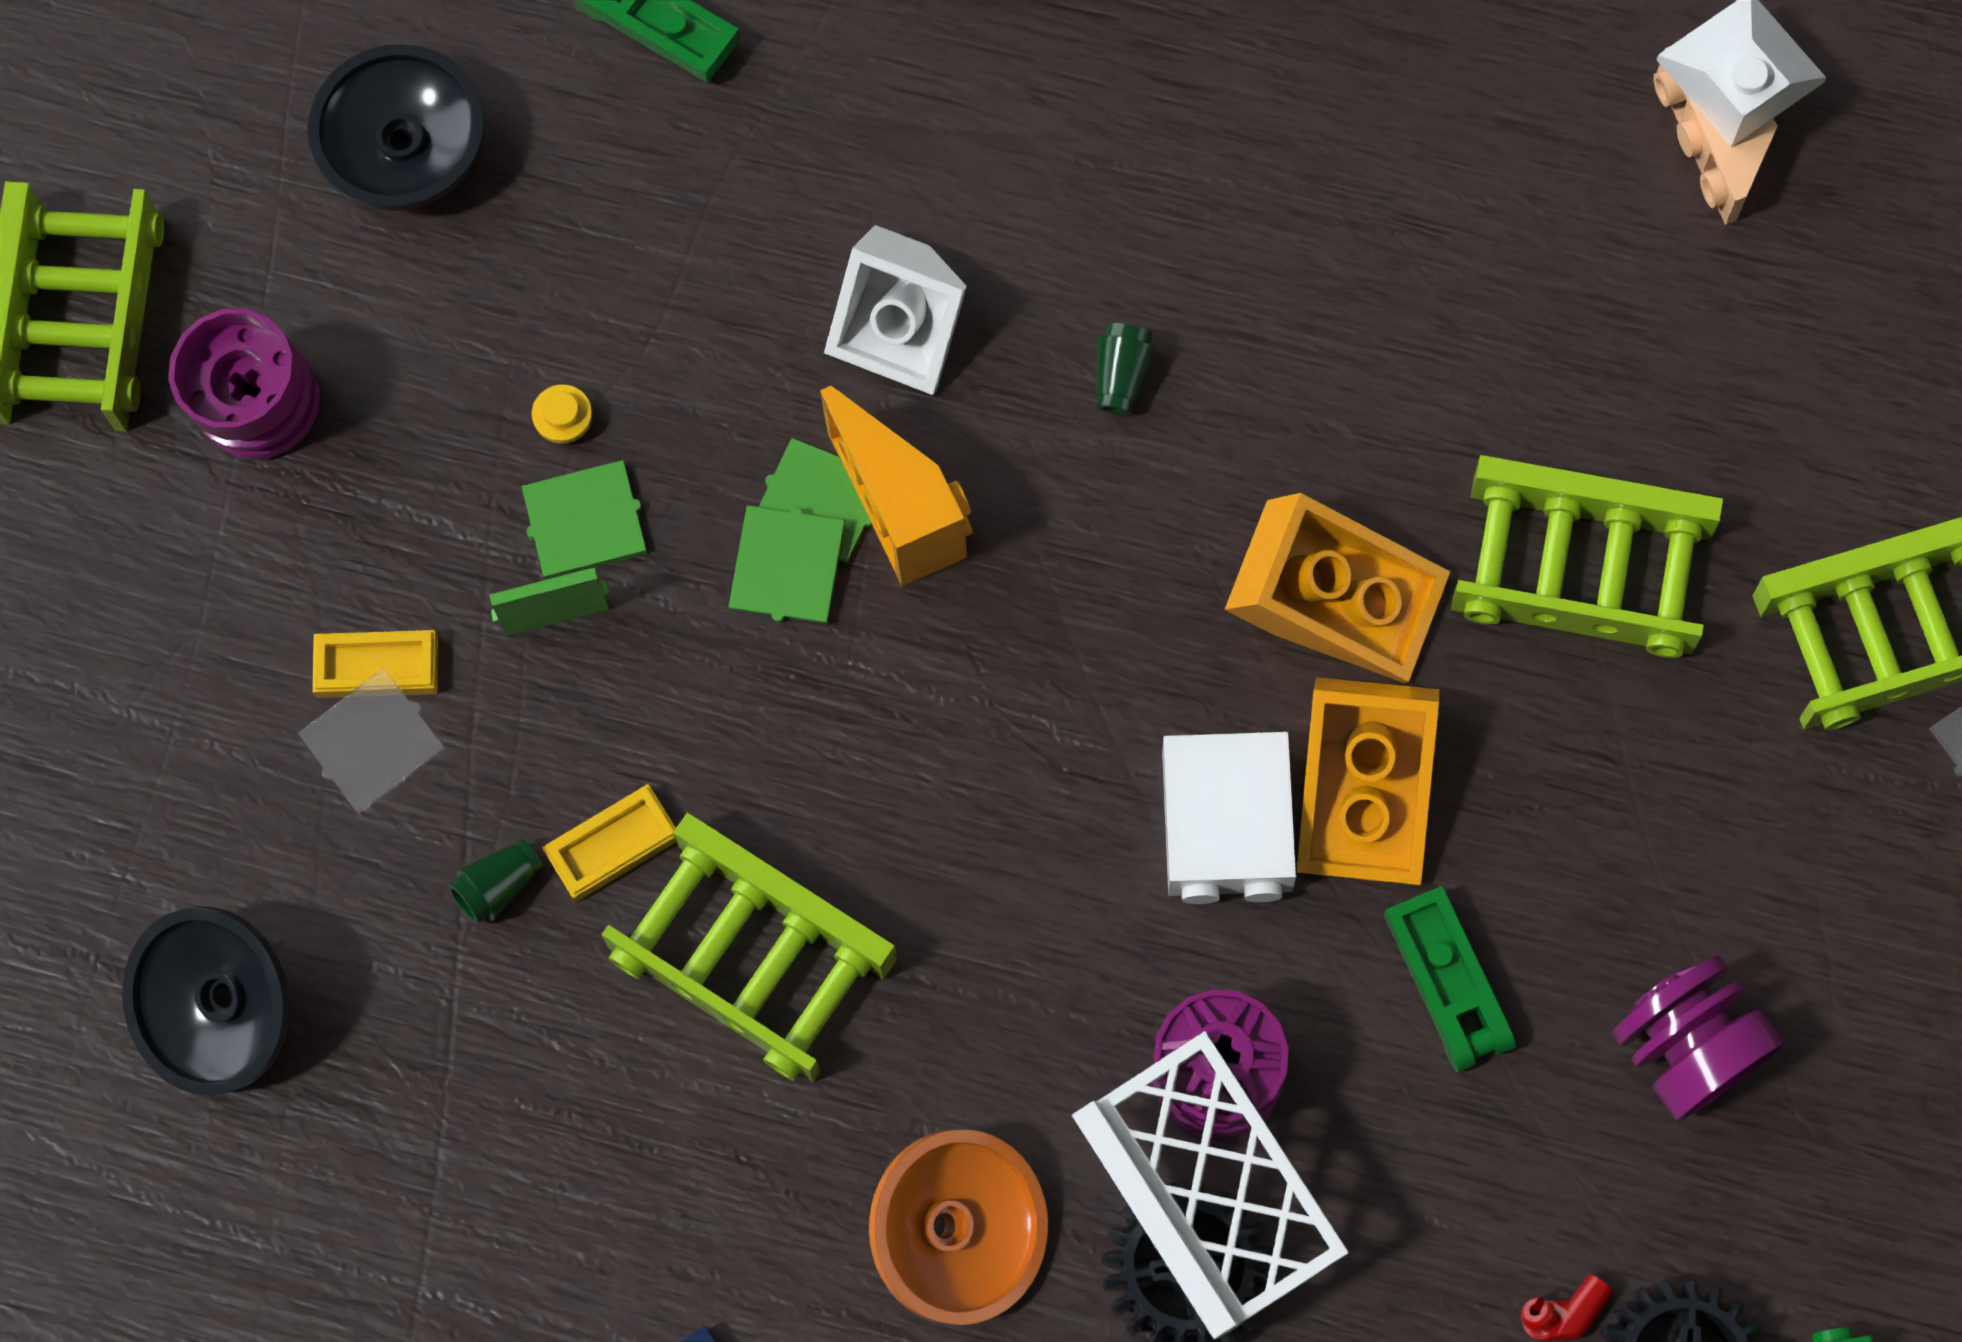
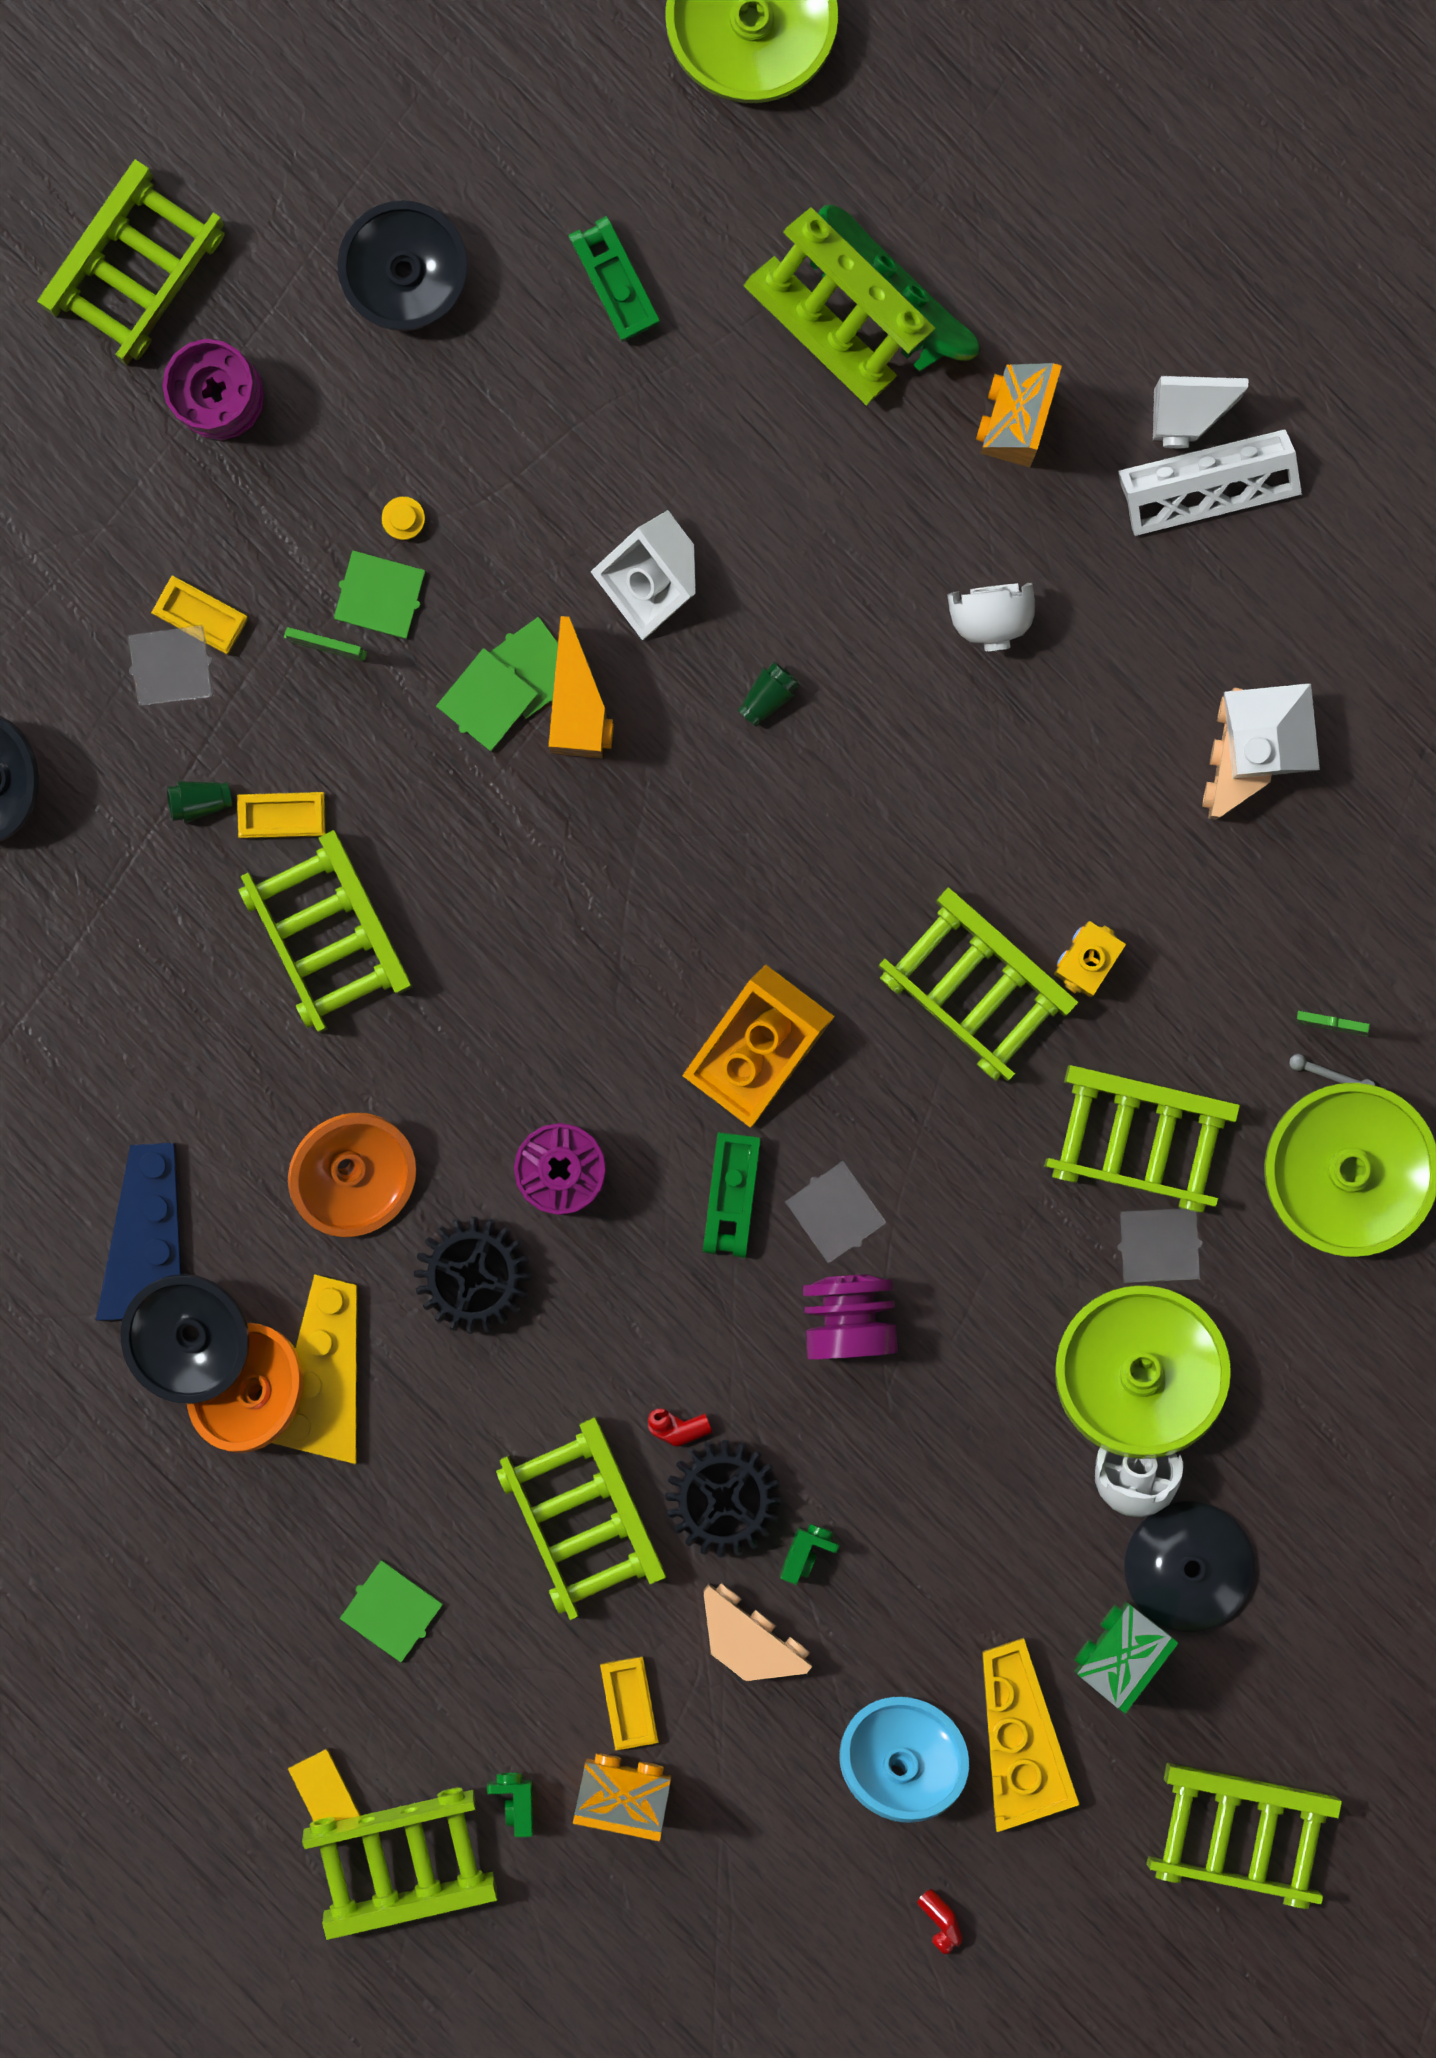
camera: 25 degrees right, 15 degrees up
(1161, 1214) = (468, 1233): white fence -> none
(1228, 816) = (659, 1020): white brick -> none
(1331, 124) = (993, 614): none -> white cylinder
(1337, 587) = (813, 916): light orange slope -> none
(1588, 929) = (835, 1212): none -> clear piece
(1701, 445) = (1074, 970): none -> yellow head

